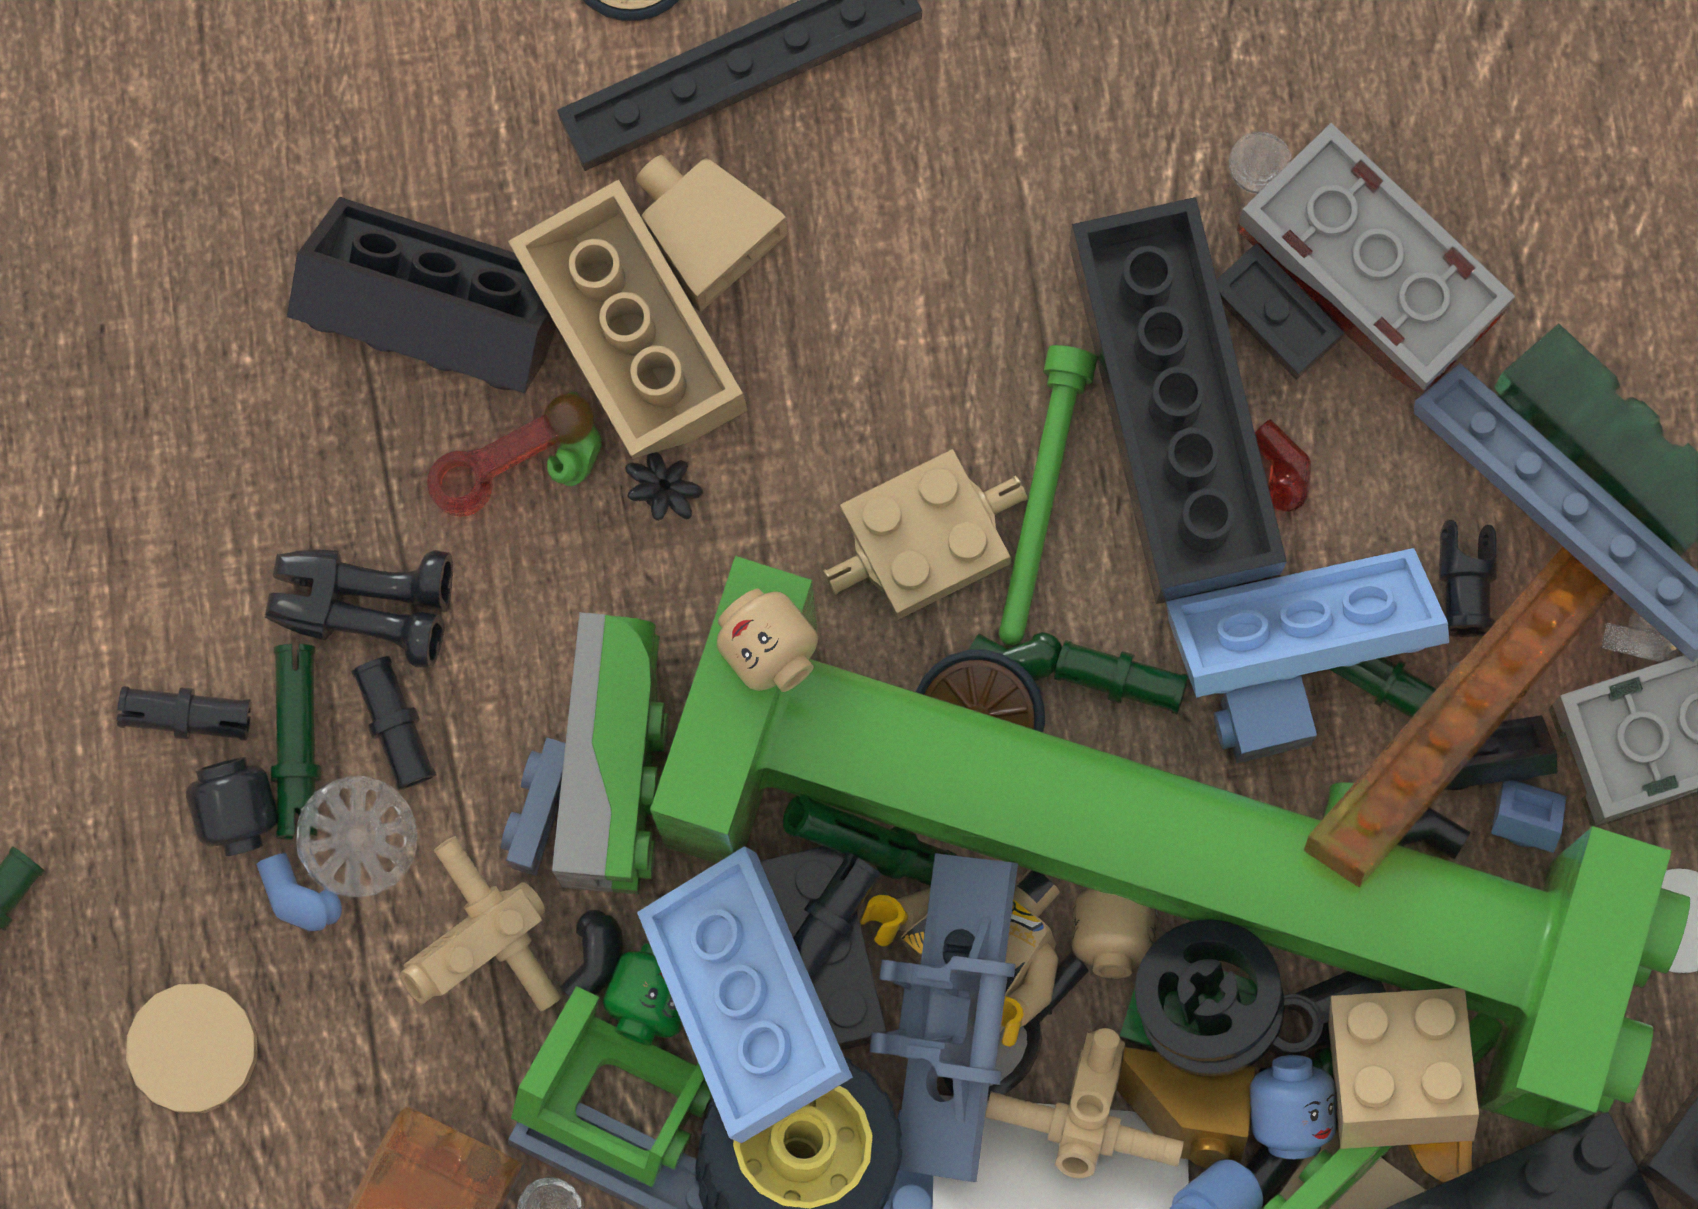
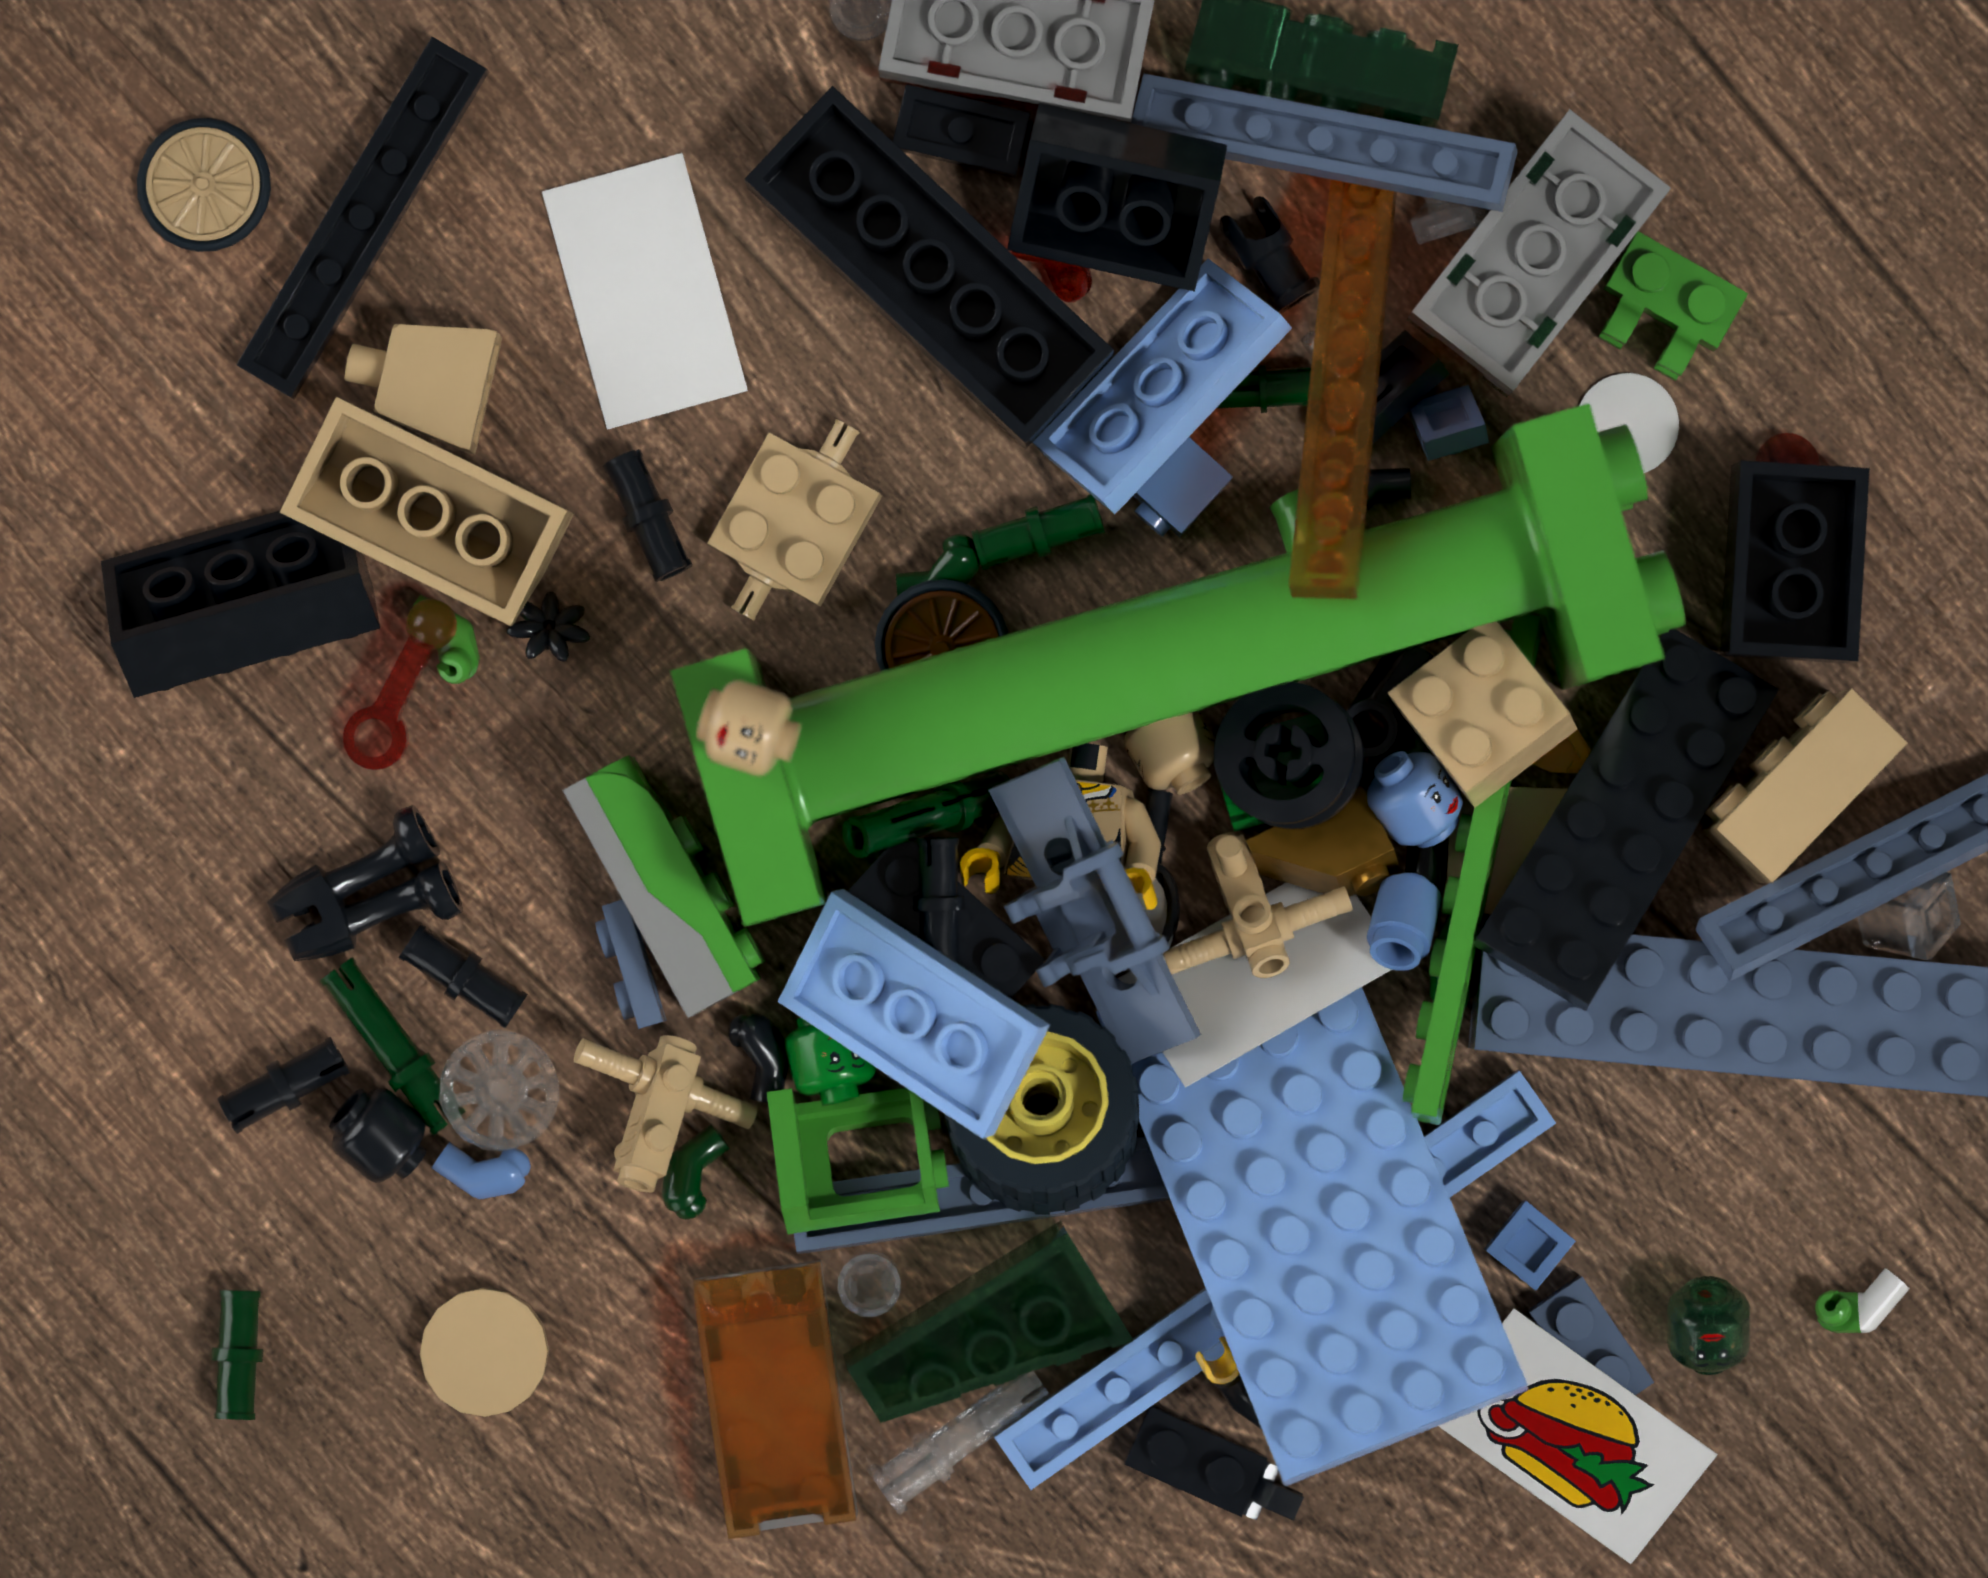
camera: 30 degrees left, 10 degrees up
(462, 1010) = (684, 1174): none -> dark green arm
(806, 450) = (647, 515): none -> black pin
(928, 273) = (644, 291): none -> white sticker
(1068, 374) = (823, 305): bright green piece -> none
(1371, 441) = (1117, 197): none -> black brick

